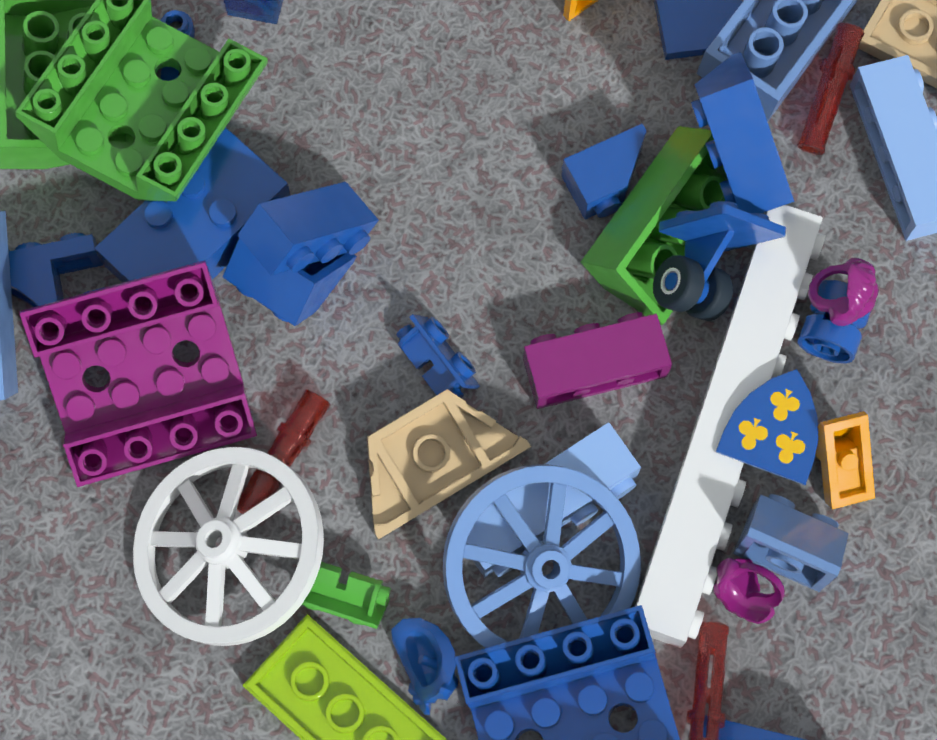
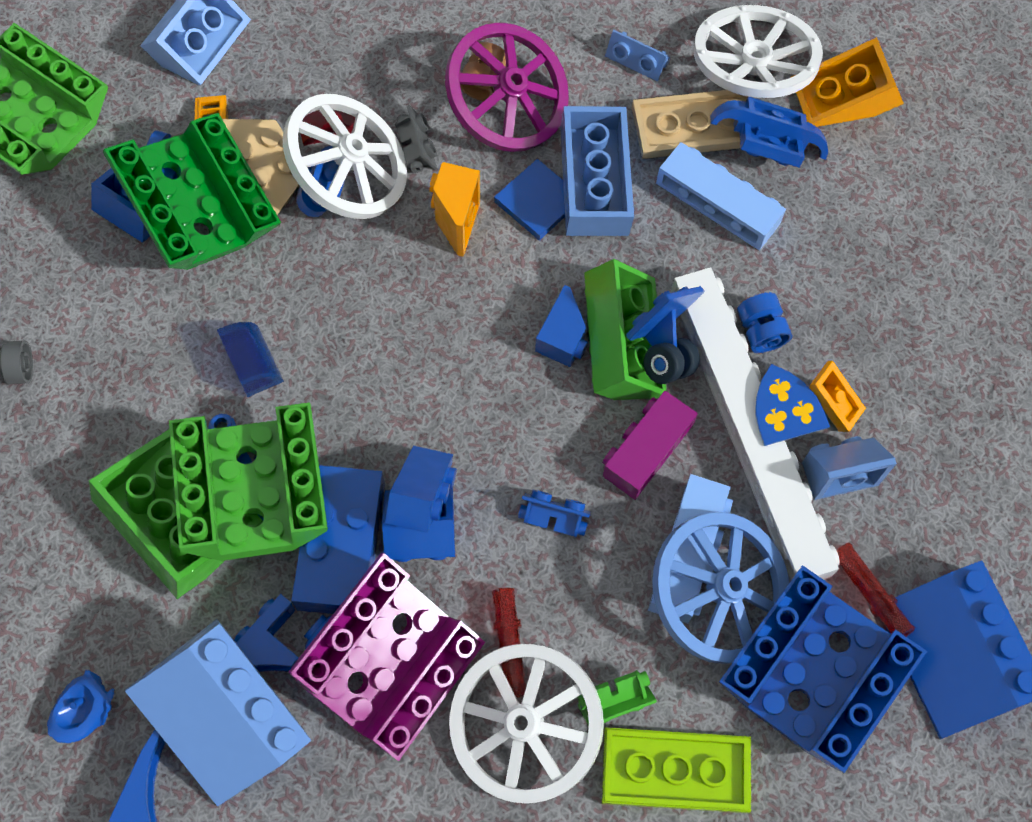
camera: 40 degrees left, 5 degrees down
(427, 661) = (702, 698): blue hat -> none
(432, 457) = (602, 574): tan wing -> none
(739, 590) = (841, 520): magenta piece -> none
(741, 138) = (635, 250): blue slope -> none
(835, 73) = (639, 158): clear red pin -> none
(860, 293) = (772, 309): magenta piece -> none

